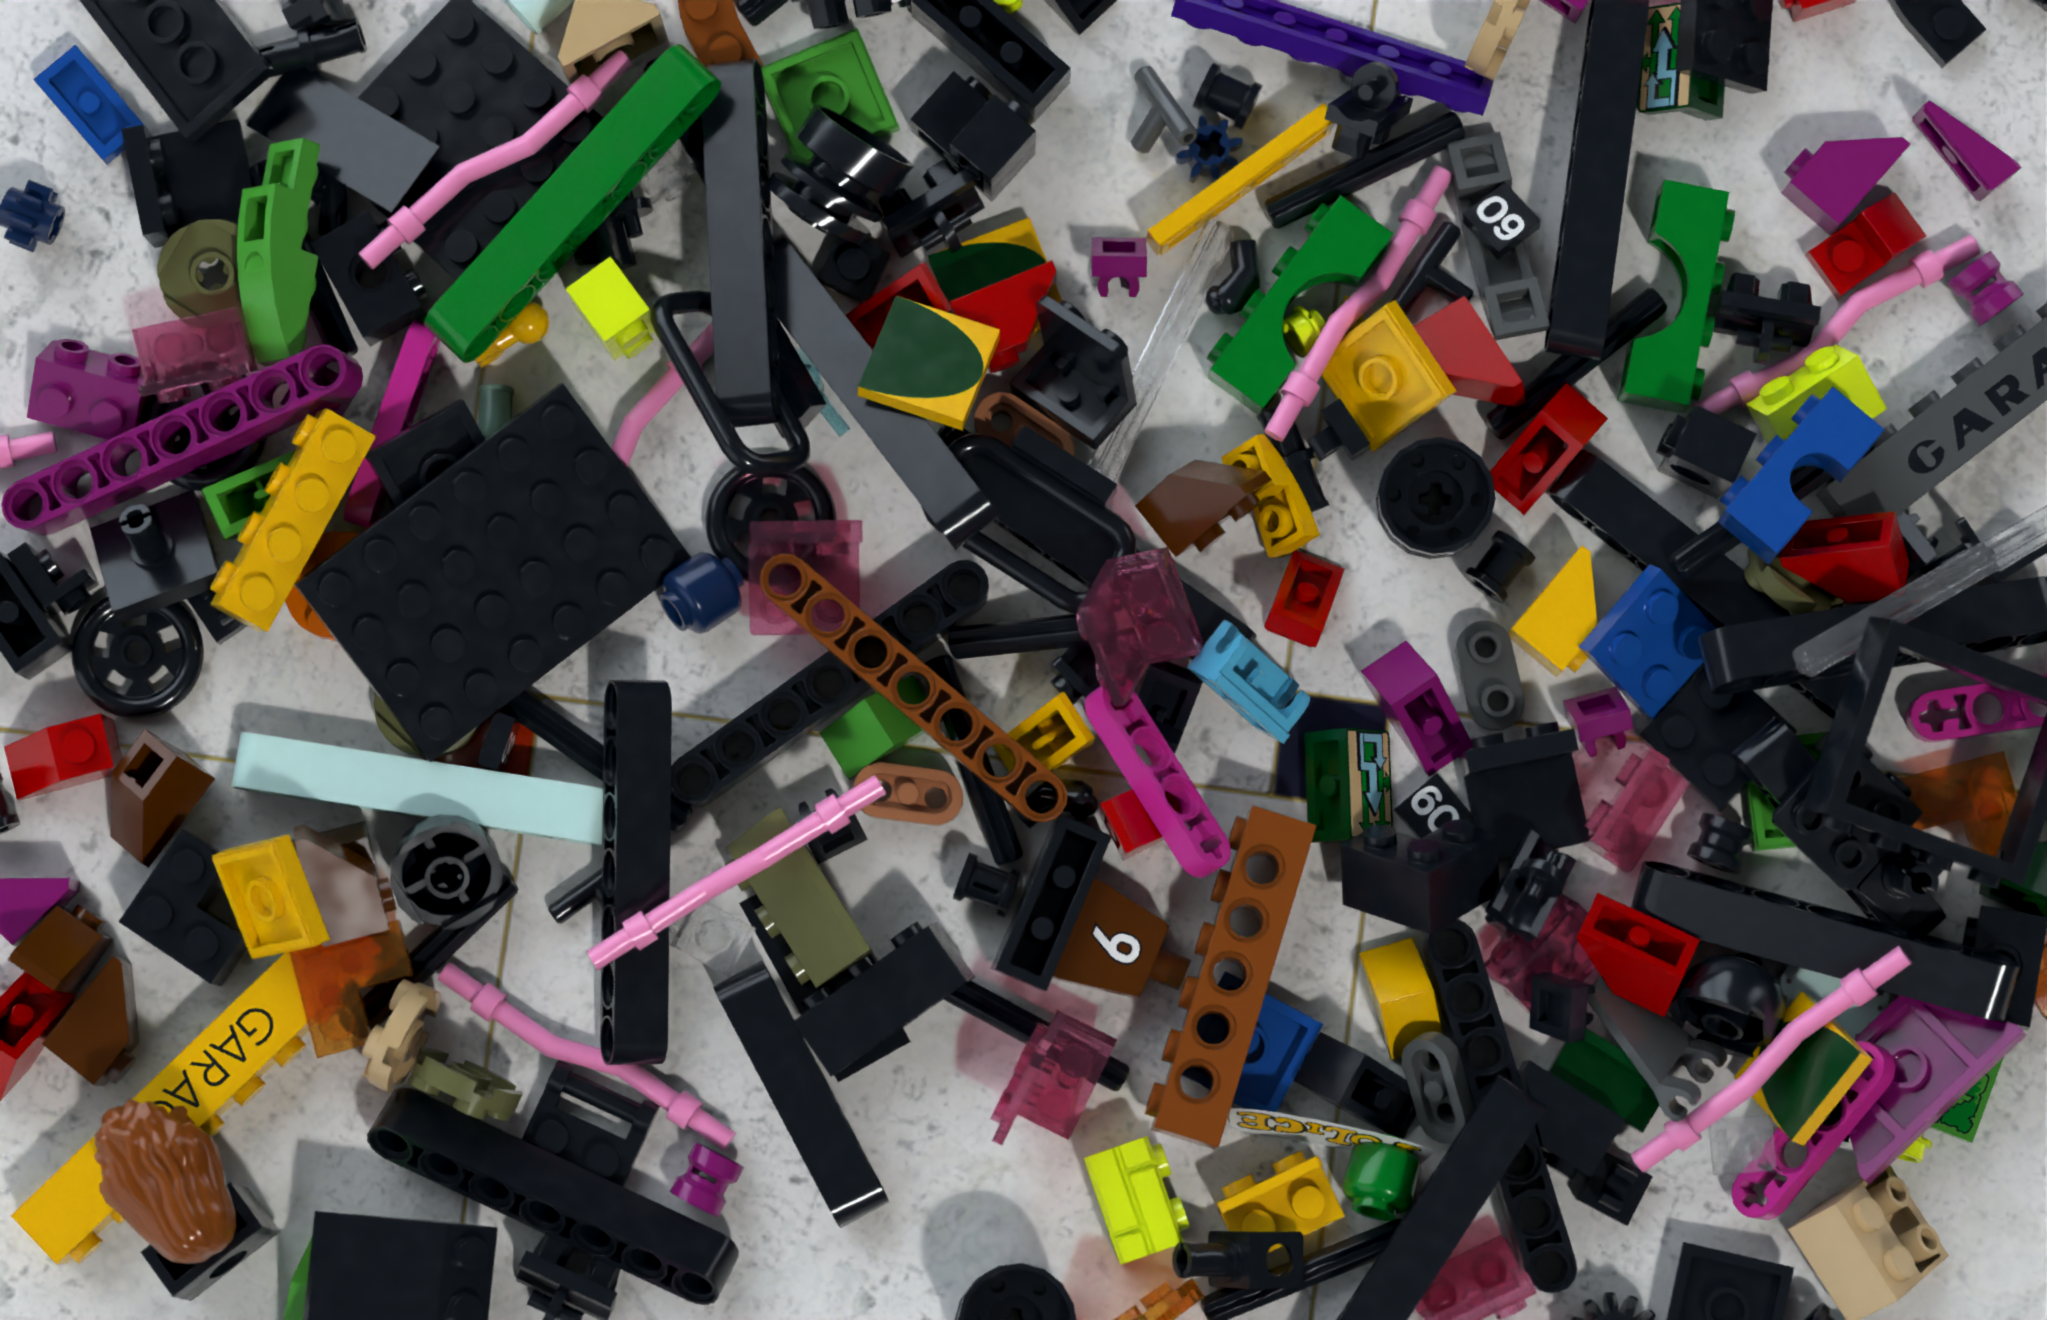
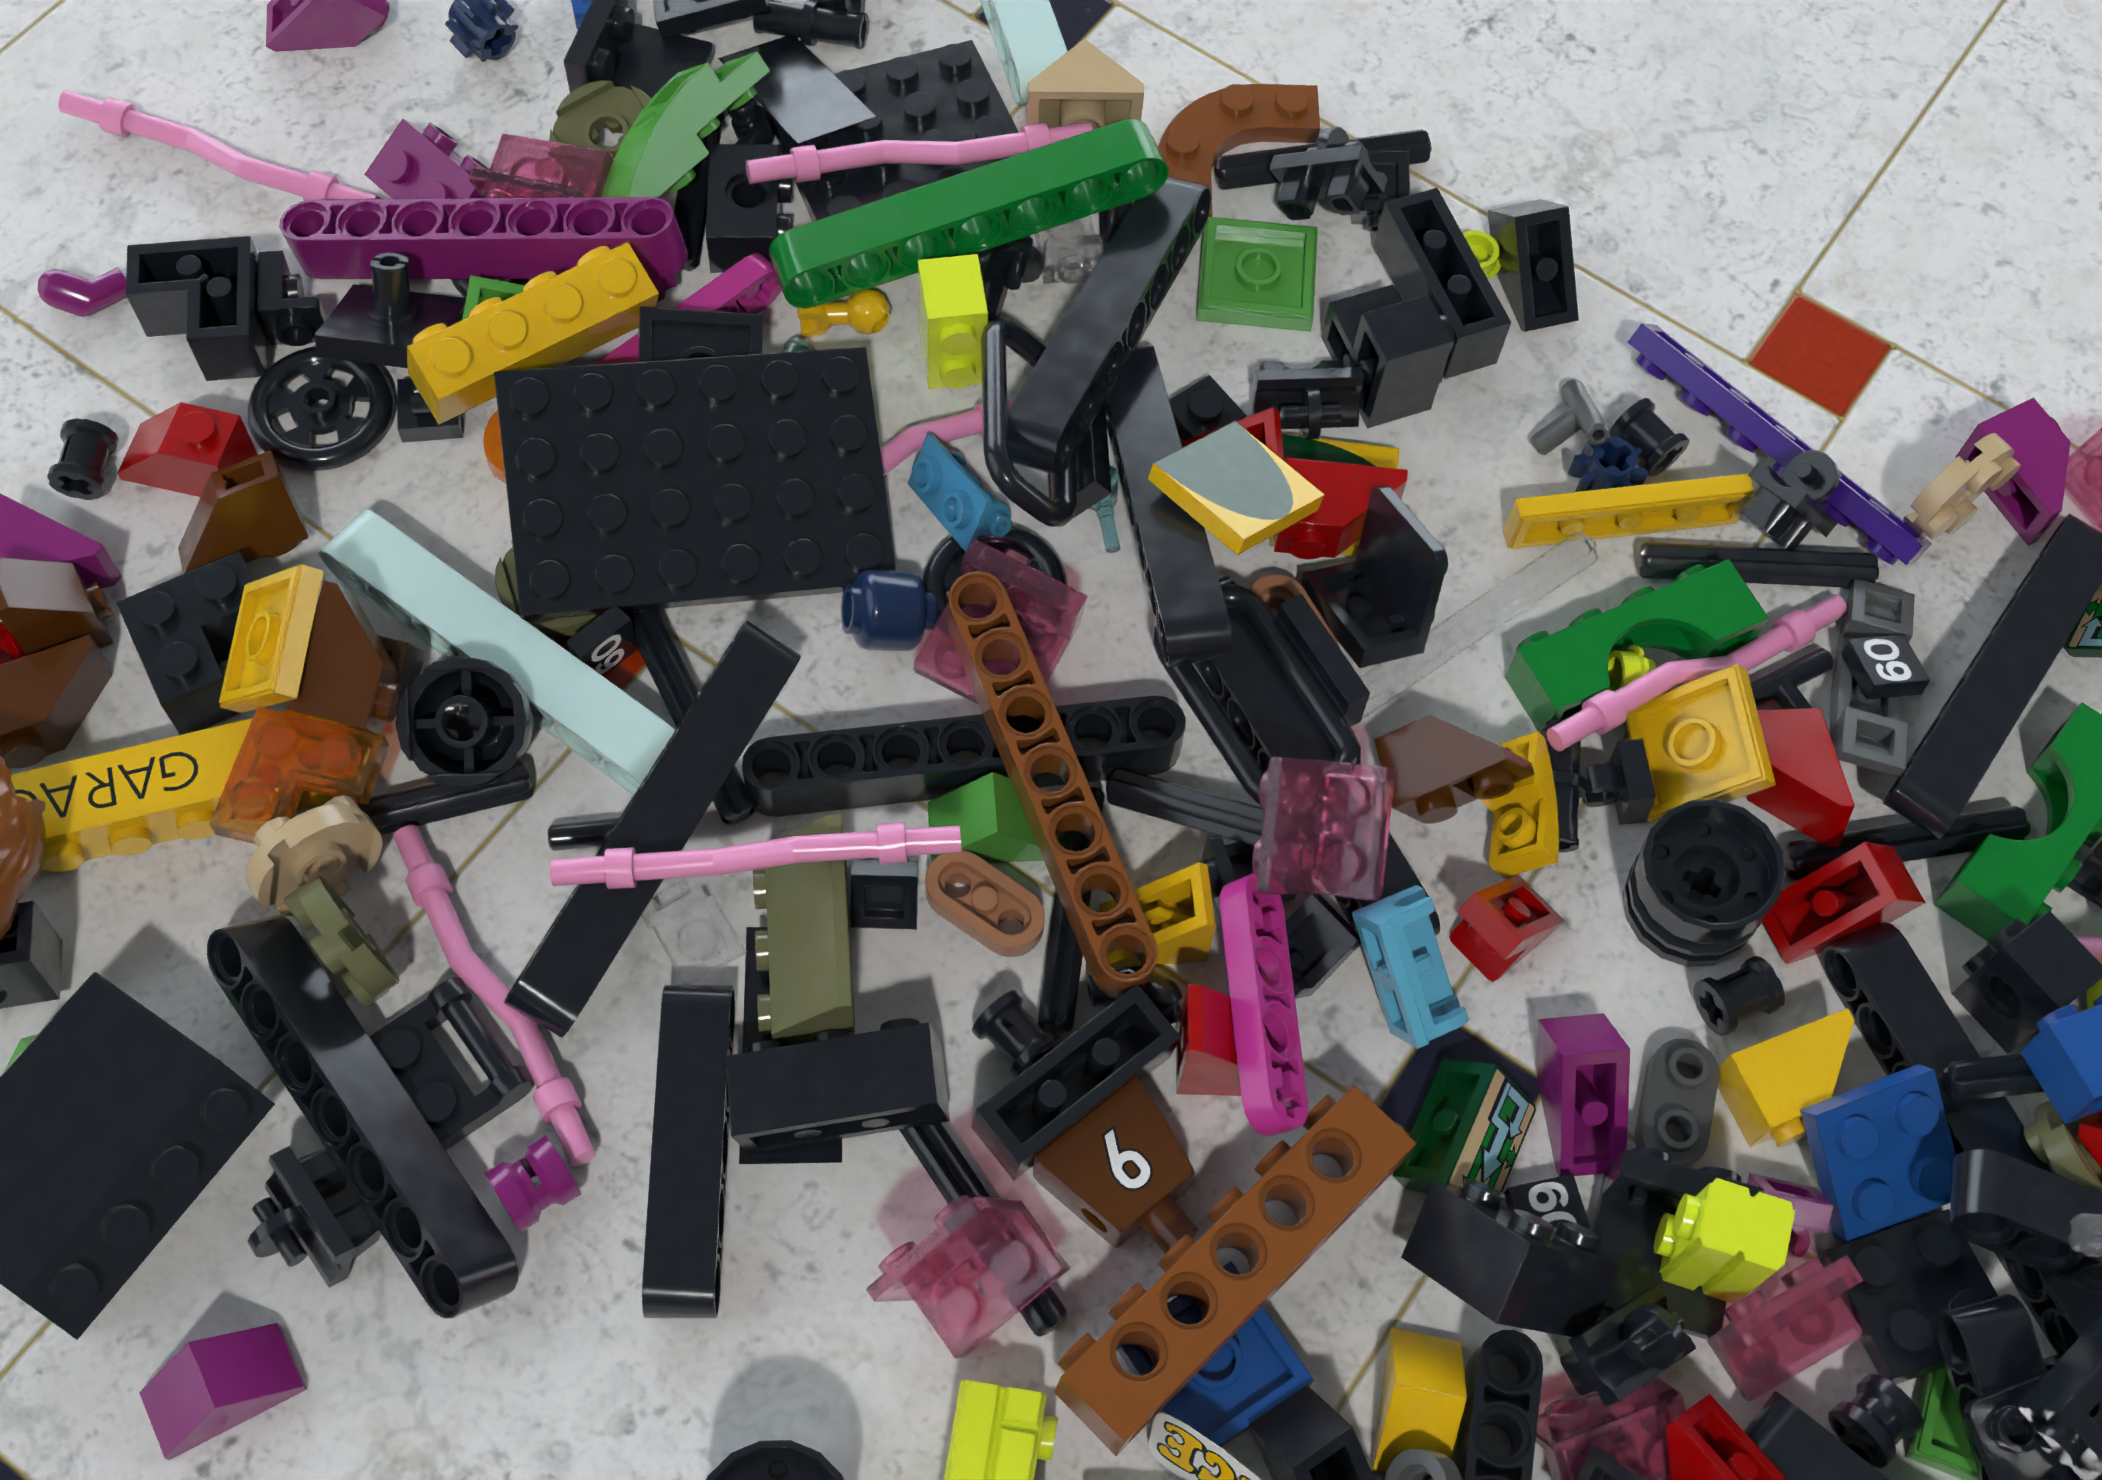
camera: 25 degrees right, 20 degrees down
(682, 451) = (956, 495): none -> dark azure hinge
(839, 175) = (1243, 306): black wheel -> none
(1118, 259) = (1468, 522): magenta tile -> none
(1240, 283) = (1571, 602): black arm -> none
(1561, 783) = (1724, 1240): none -> neon yellow brick

